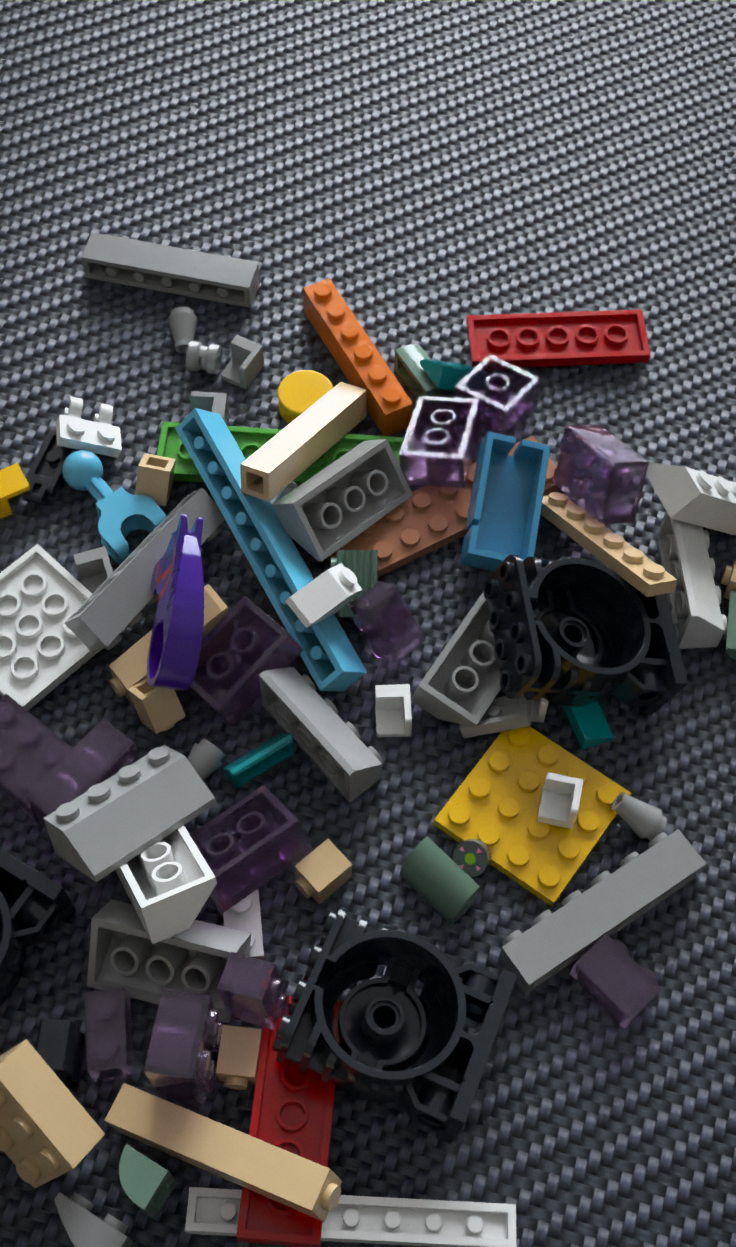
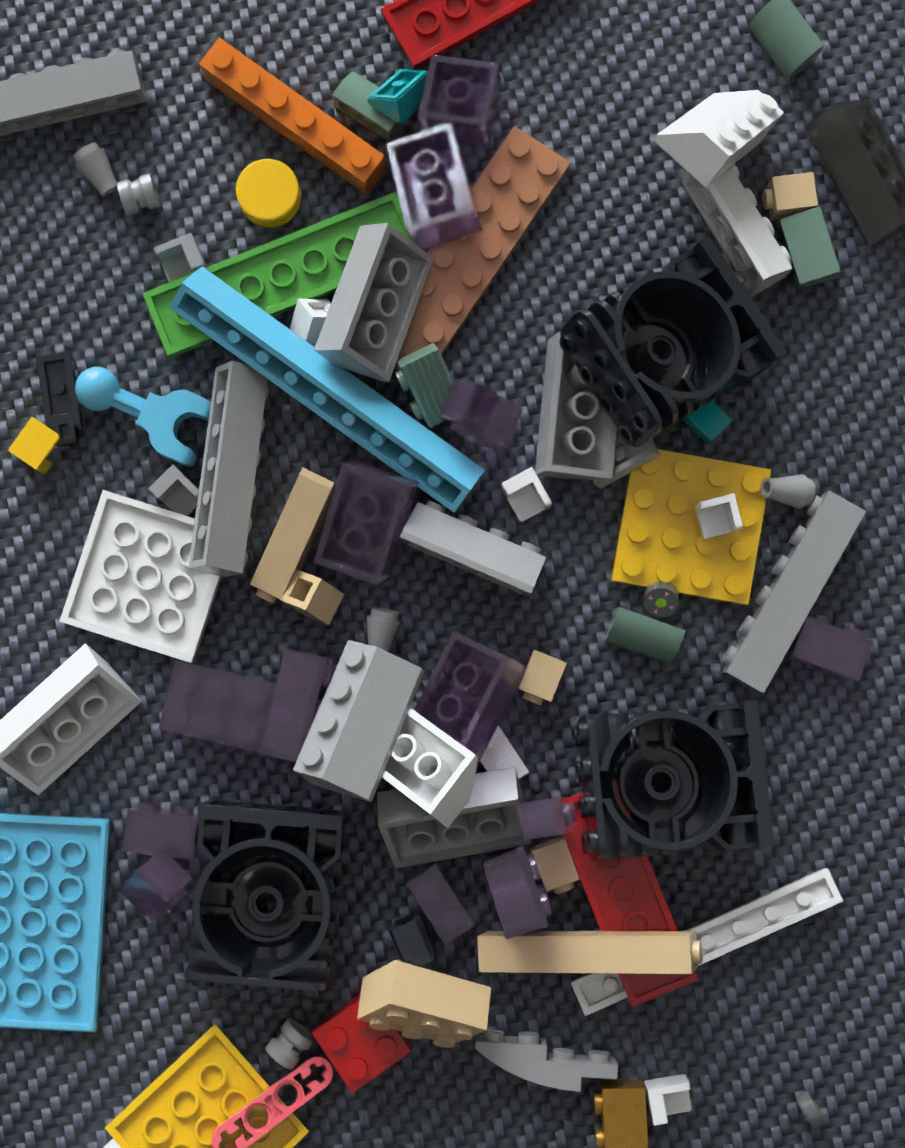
camera: 20 degrees left, 25 degrees up
(87, 435) = (78, 347): white plate -> none
(145, 1181) = (538, 1001): sand green brick -> none
(155, 478) = (176, 365): tan brick -> none
(180, 610) = (301, 520): dark purple animal -> none
(245, 362) = (181, 180): light grey panel -> none
(259, 759) = (428, 598): teal slope -> none
(303, 441) = (304, 257): tan brick -> none
(324, 595) = (416, 425): white slope -> none
(504, 501) = (532, 231): dark azure piece -> none
(600, 473) = (610, 155): clear purple brick -> none
(607, 546) = (647, 235): tan plate -> none

